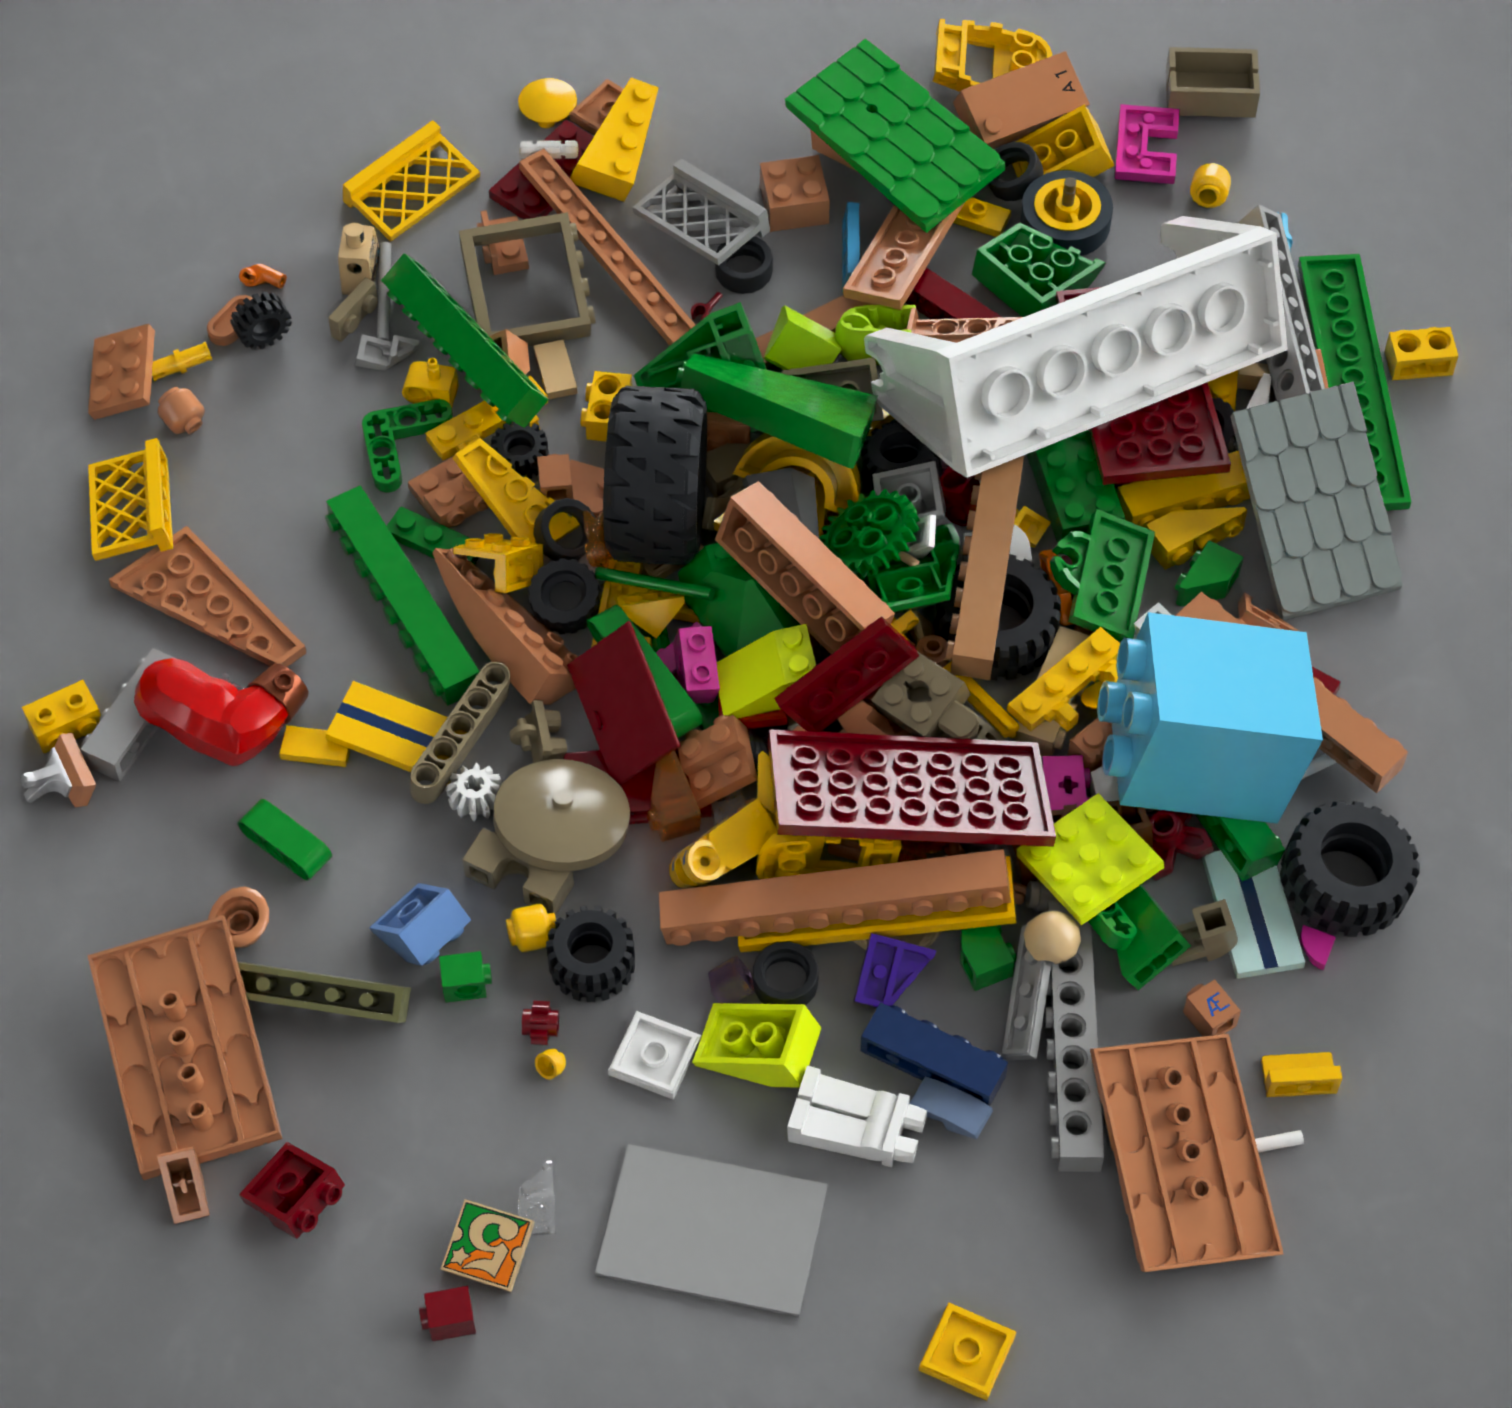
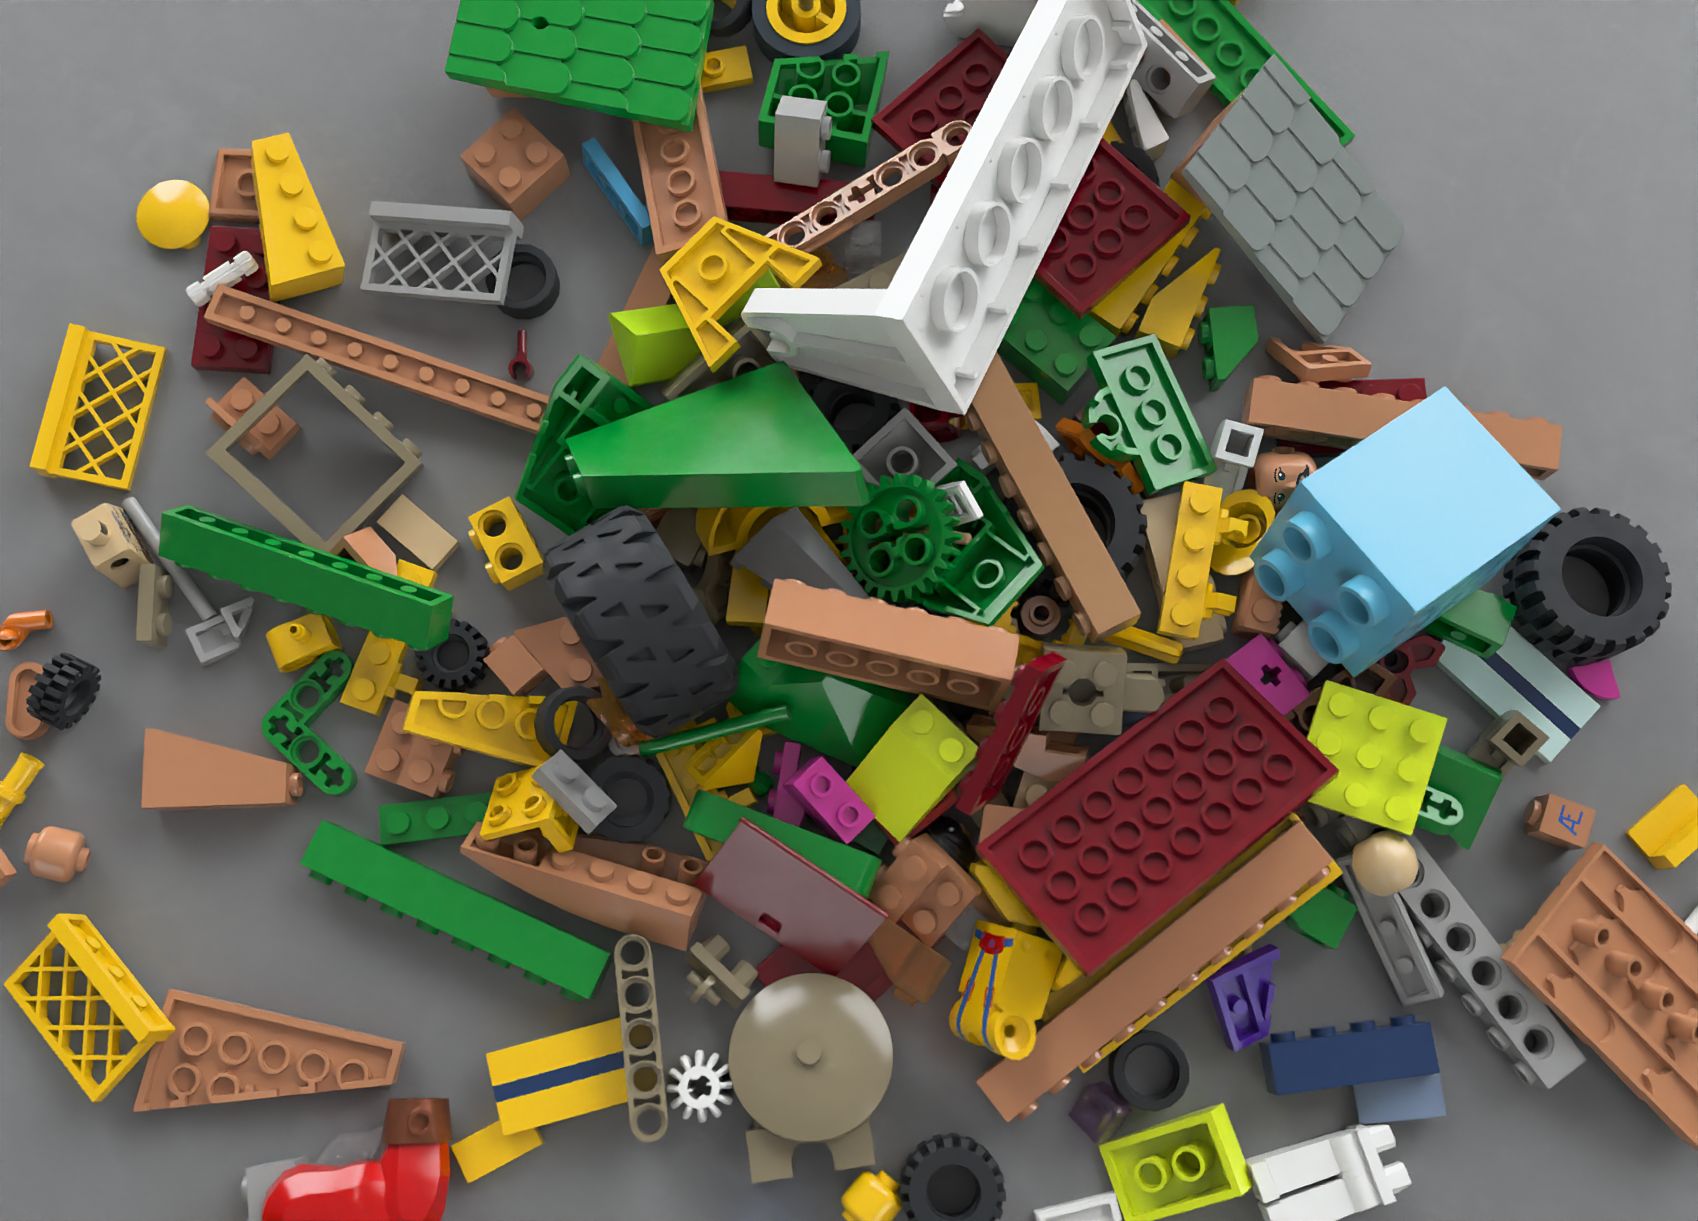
camera: 35 degrees left, 20 degrees up
(311, 426) = (206, 776): none -> nougat slope
(534, 558) = (574, 791): none -> light grey plate
(868, 310) = (718, 270): none -> yellow wing
(994, 275) = (800, 141): none -> light grey brick

